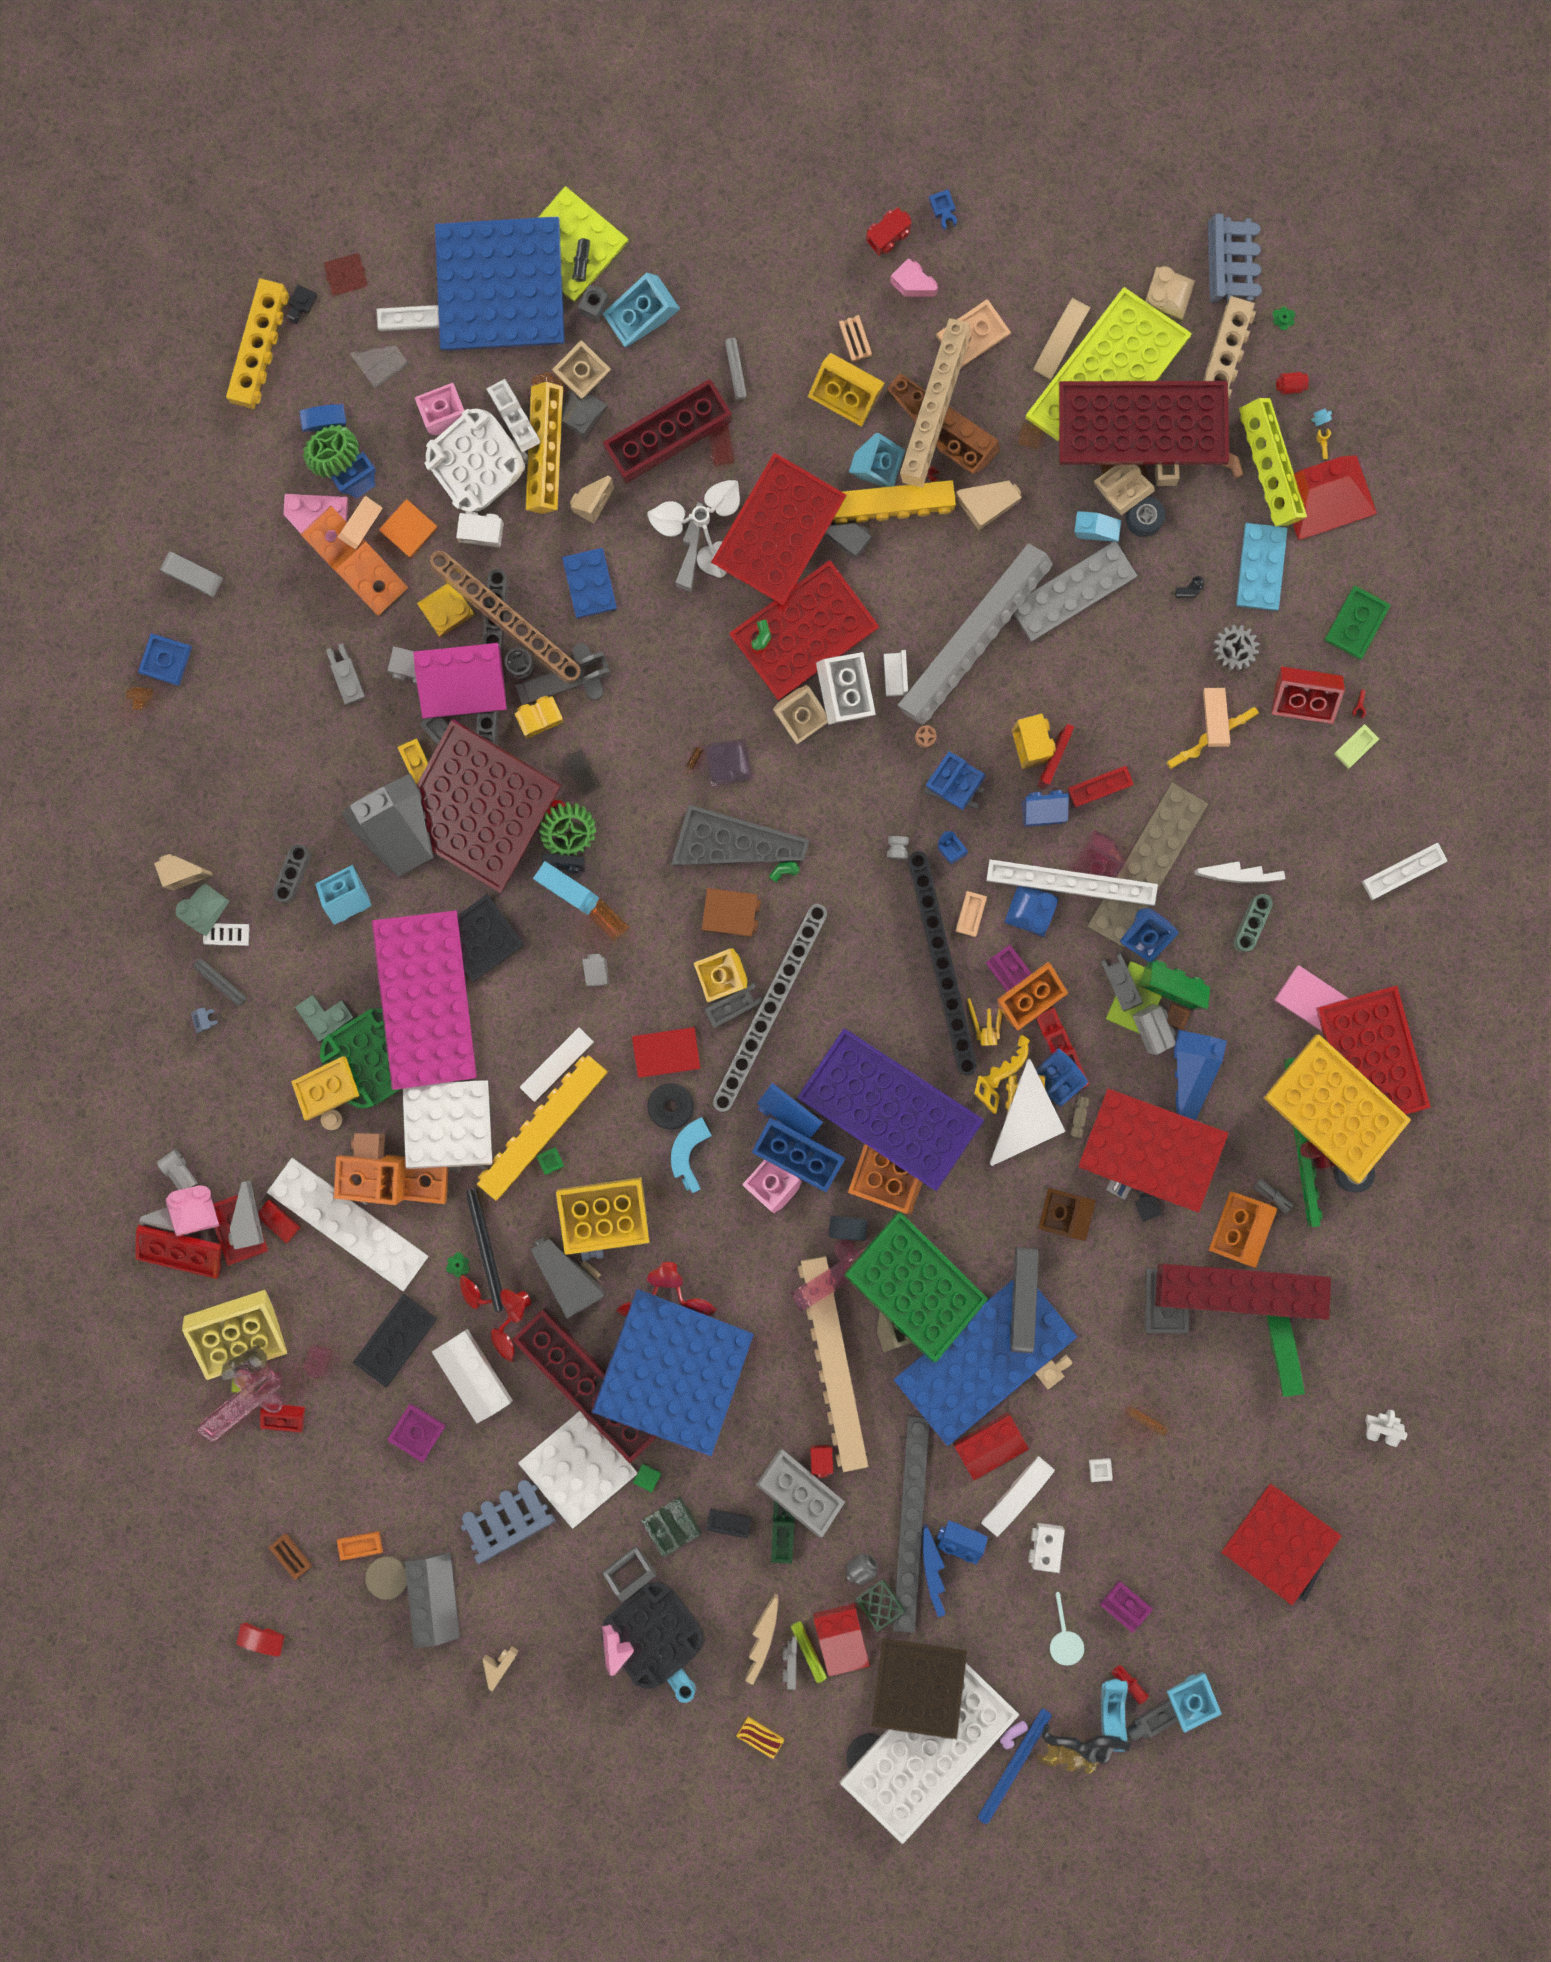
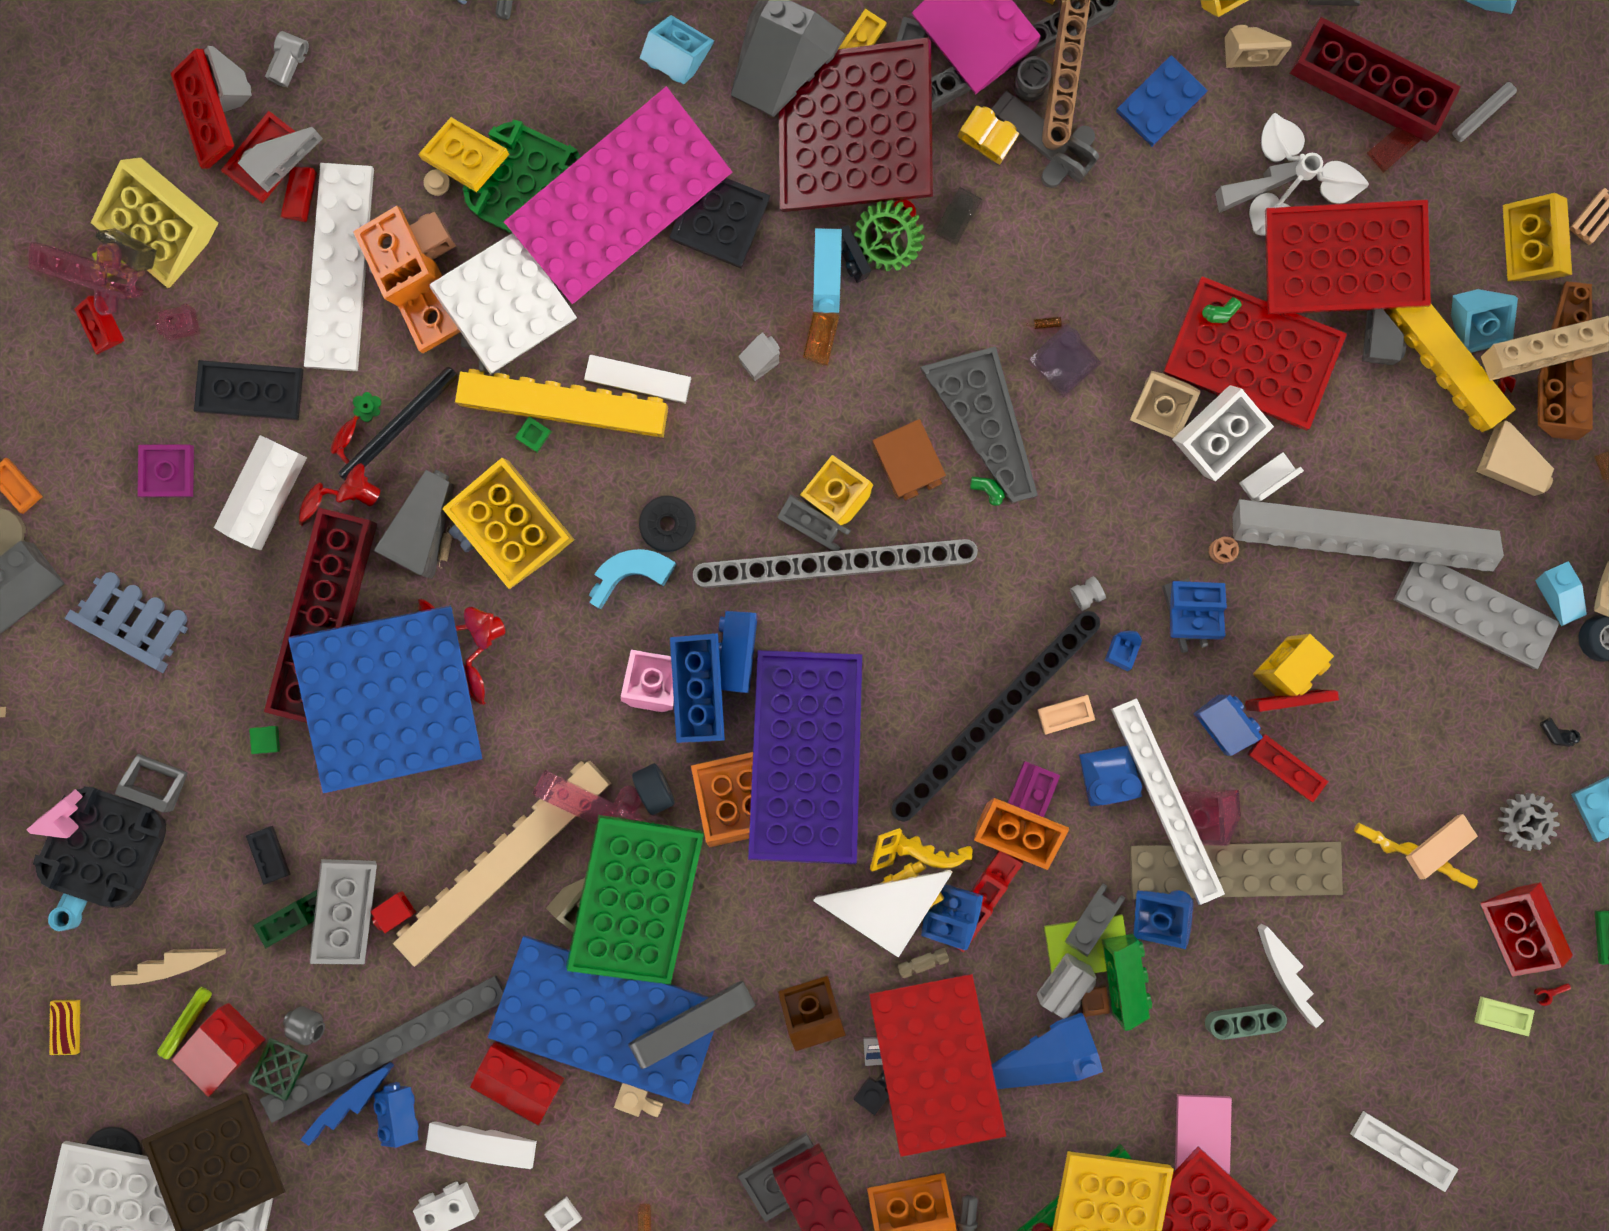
camera: 60 degrees right, 0 degrees up
(191, 1210) = (252, 94): bright pink slope -> none
(321, 1021) = (532, 108): sand green plate -> none
(577, 1469) = (227, 661): white plate -> none
(666, 1052) = (720, 484): red tile -> none
(671, 1526) = (228, 797): clear green slope -> none
(789, 1655) = (149, 1017): light grey hinge -> none
(988, 1035) = (948, 812): yellow plant -> none

